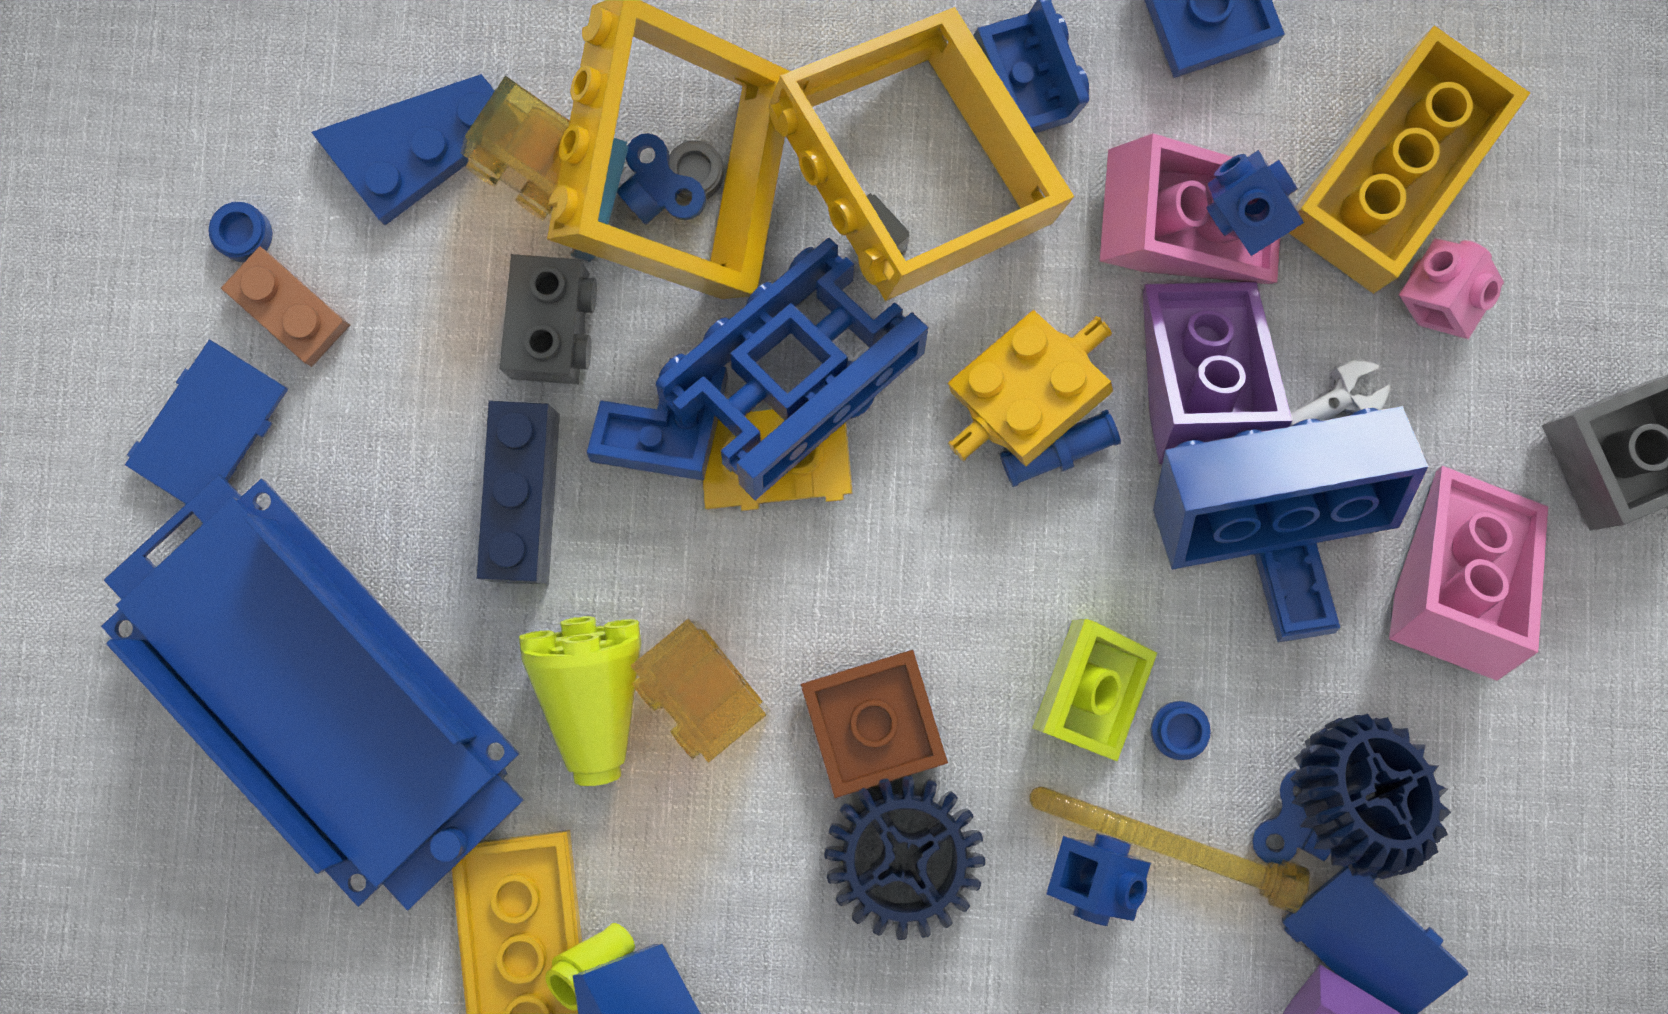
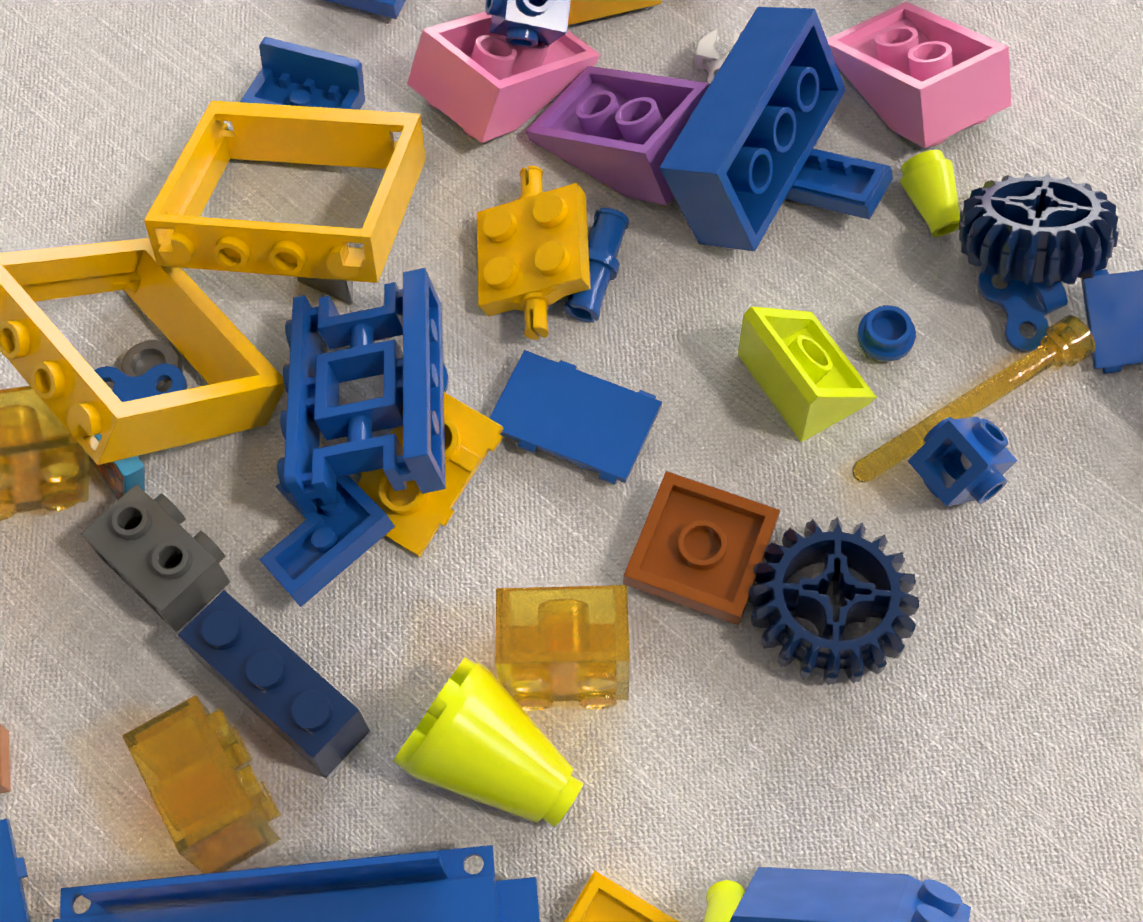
camera: 45 degrees left, 20 degrees down
(399, 517) = (201, 788): none -> clear yellow brick
(911, 537) = (575, 416): none -> blue piece
(1351, 675) = (933, 190): none -> neon yellow cone

